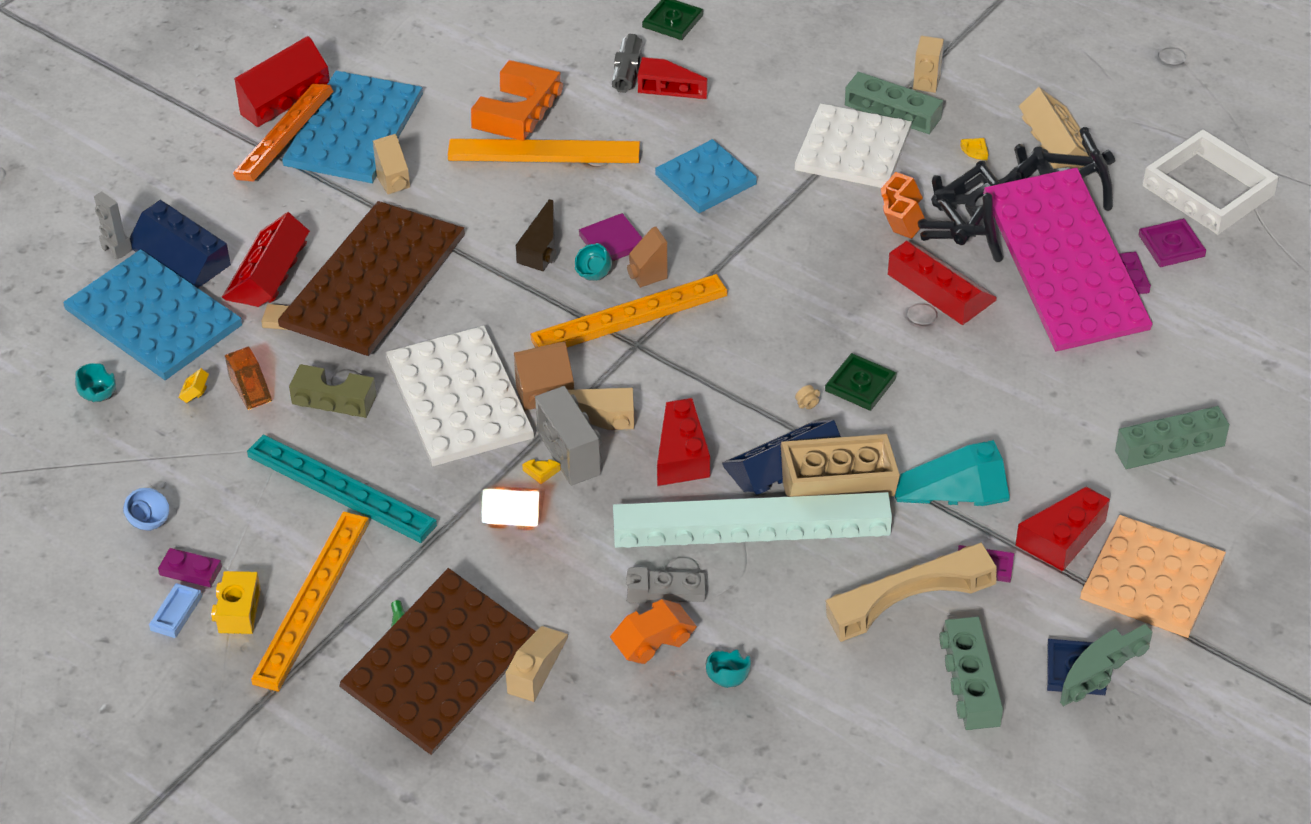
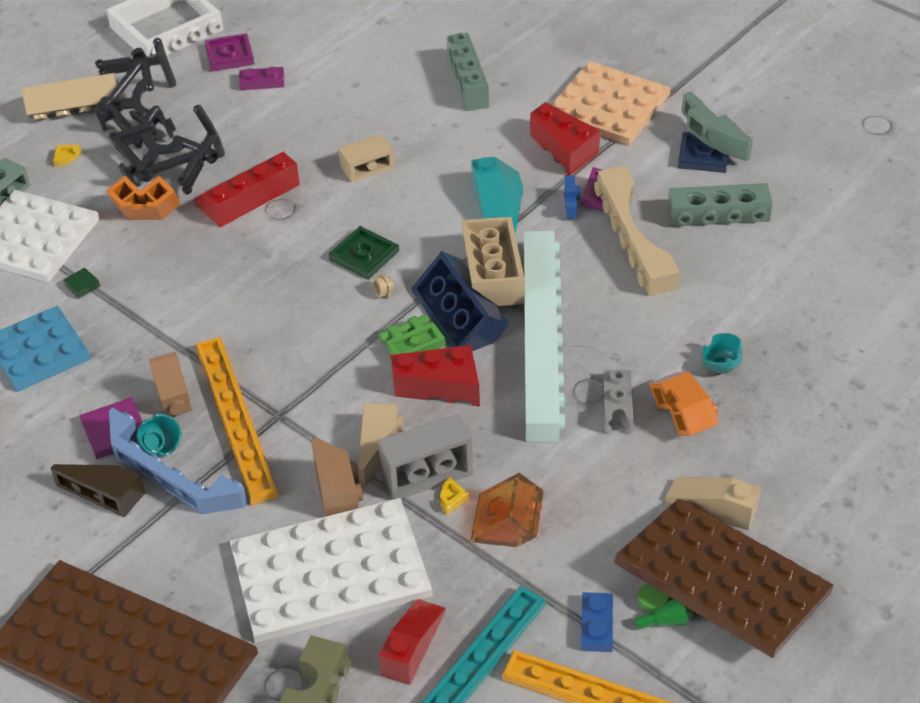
camera: 85 degrees left, 0 degrees up
(377, 447) = (410, 641): none -> red slope
(398, 576) = (597, 622): none -> blue plate
(554, 264) = (221, 496): none -> medium blue slope
(730, 428) = (412, 336): none -> bright green plate
(791, 189) = (81, 282): none -> dark green tile
(966, 535) = (571, 195): none -> blue plate
(1002, 366) = (366, 158): none -> tan brick
(1067, 260) = (246, 101): dark pink plate -> none

